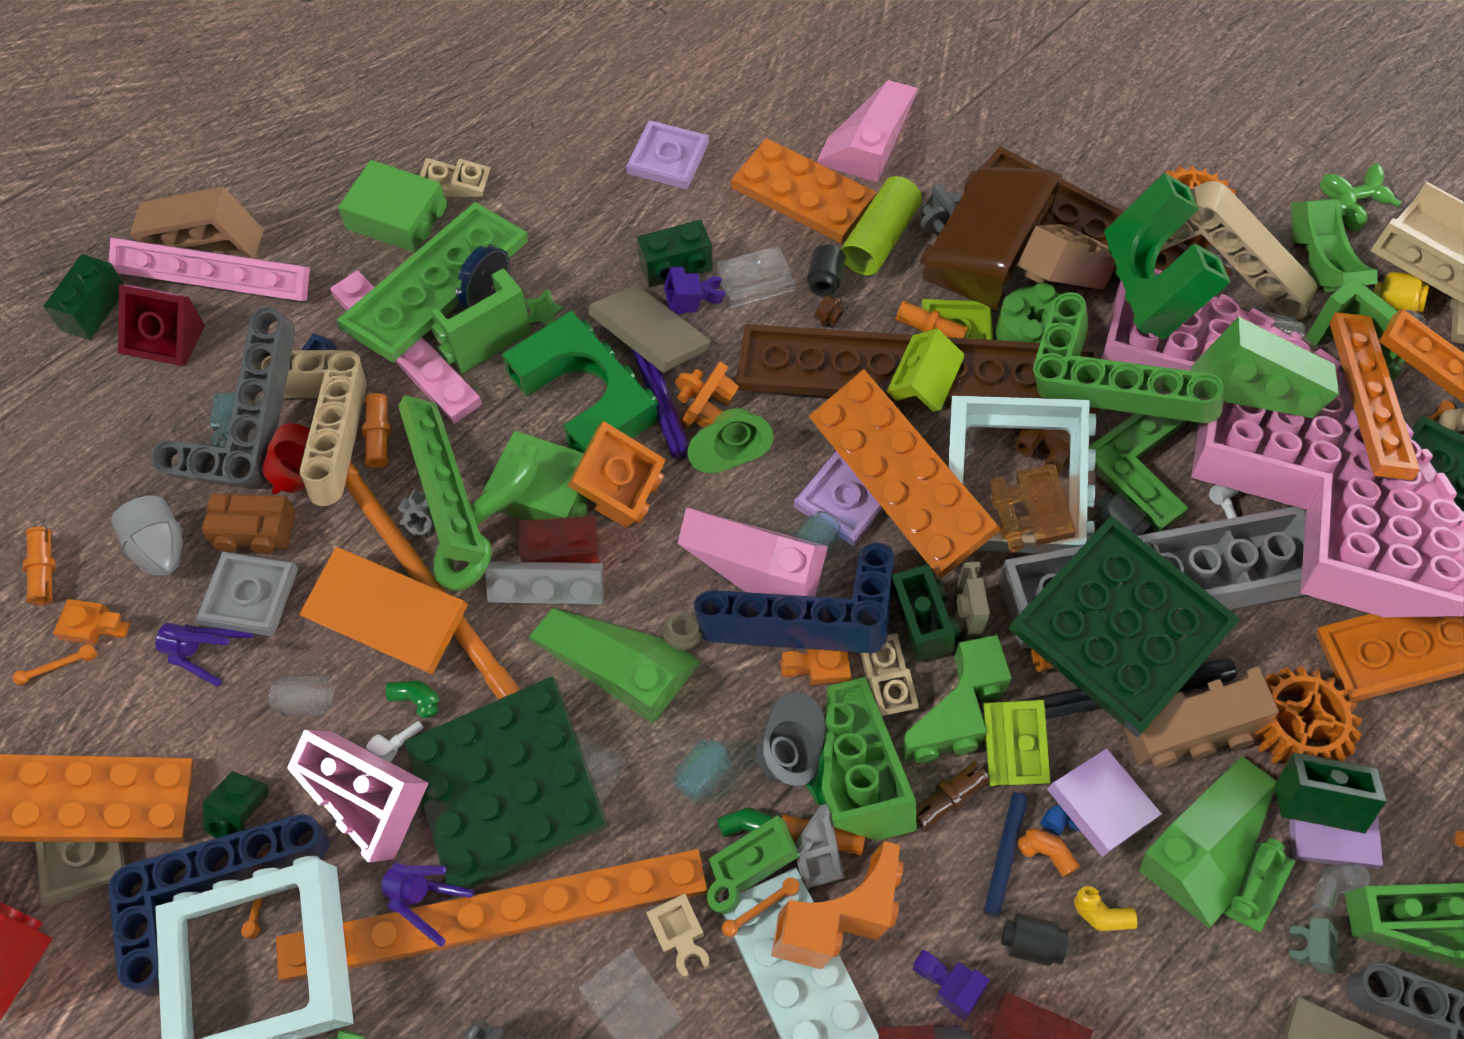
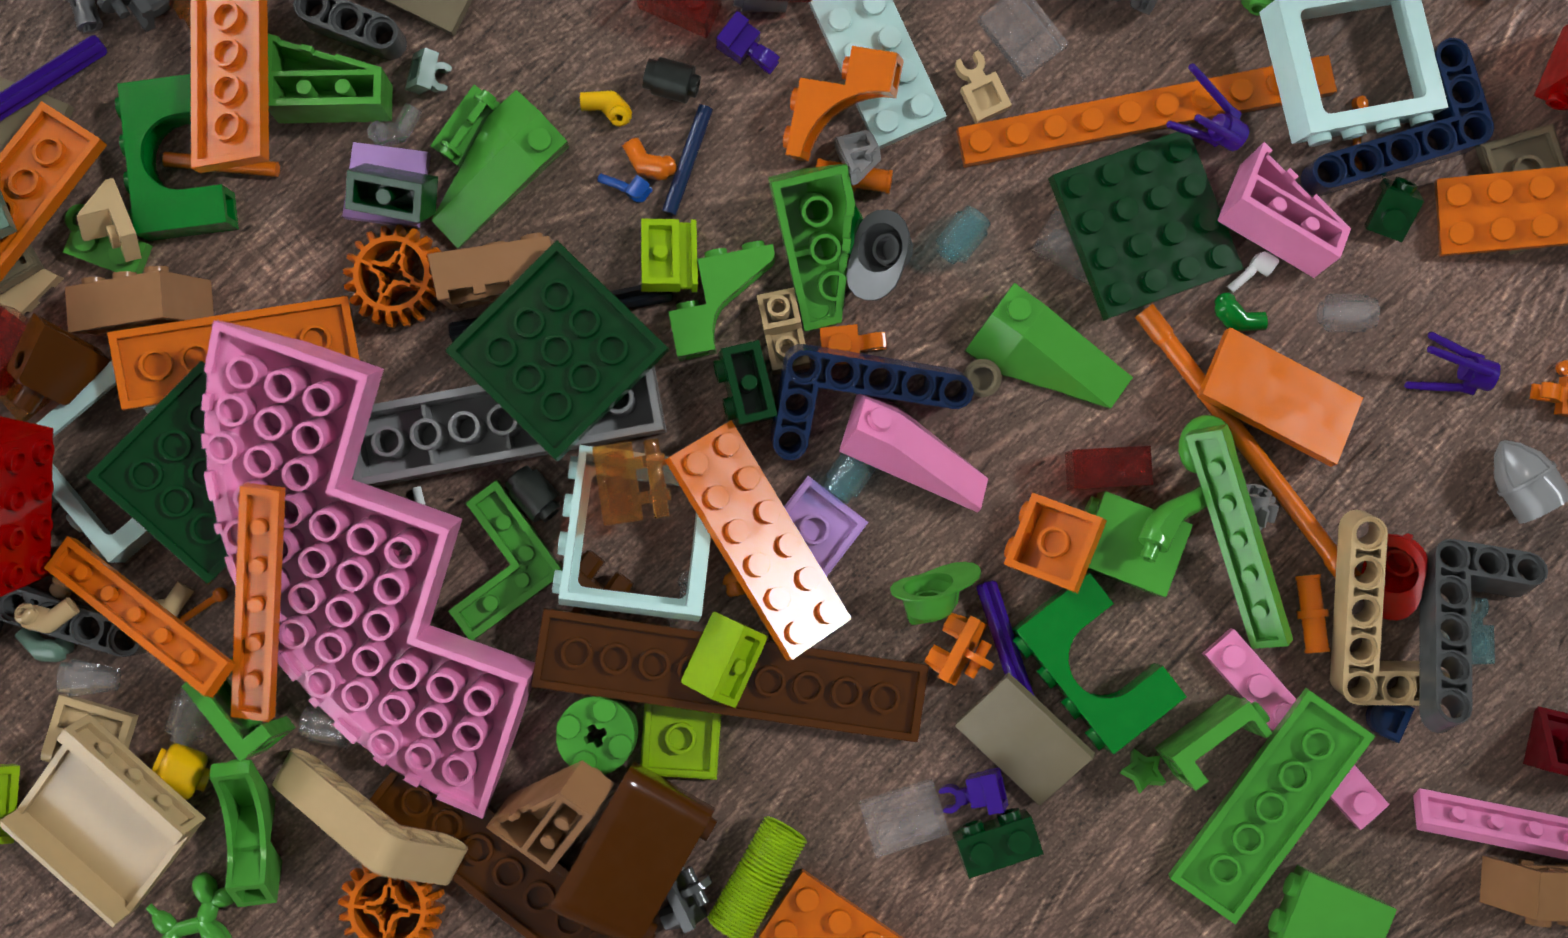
camera: 175 degrees left, 25 degrees up
(247, 594) = (1418, 423): light grey plate -> none
(248, 522) = (1430, 502): dark orange brick -> none
(477, 274) = (1217, 802): tile -> none
(544, 583) = (1120, 428): light grey plate -> none
(742, 820) = (917, 191): green arm -> none
(749, 862) = (920, 146): bright green hinge -> none
(789, 887) = (884, 122): orange hinge -> none
(826, 270) = (823, 819): pearl dark grey brick -> none
(829, 311) = (821, 763): reddish brown plate -> none
(926, 320) = (711, 734): orange pin -> none
(950, 795) = (734, 210): reddish brown pin -> none
(972, 603) = (701, 385): dark tan plate -> none
(1104, 802) = (593, 200): lavender tile -> none
(1111, 376) = (534, 623): bright green beam -> none
(1134, 242) = (475, 818): green arch -> none
(1268, 371) = (370, 617): bright green wedge -> none

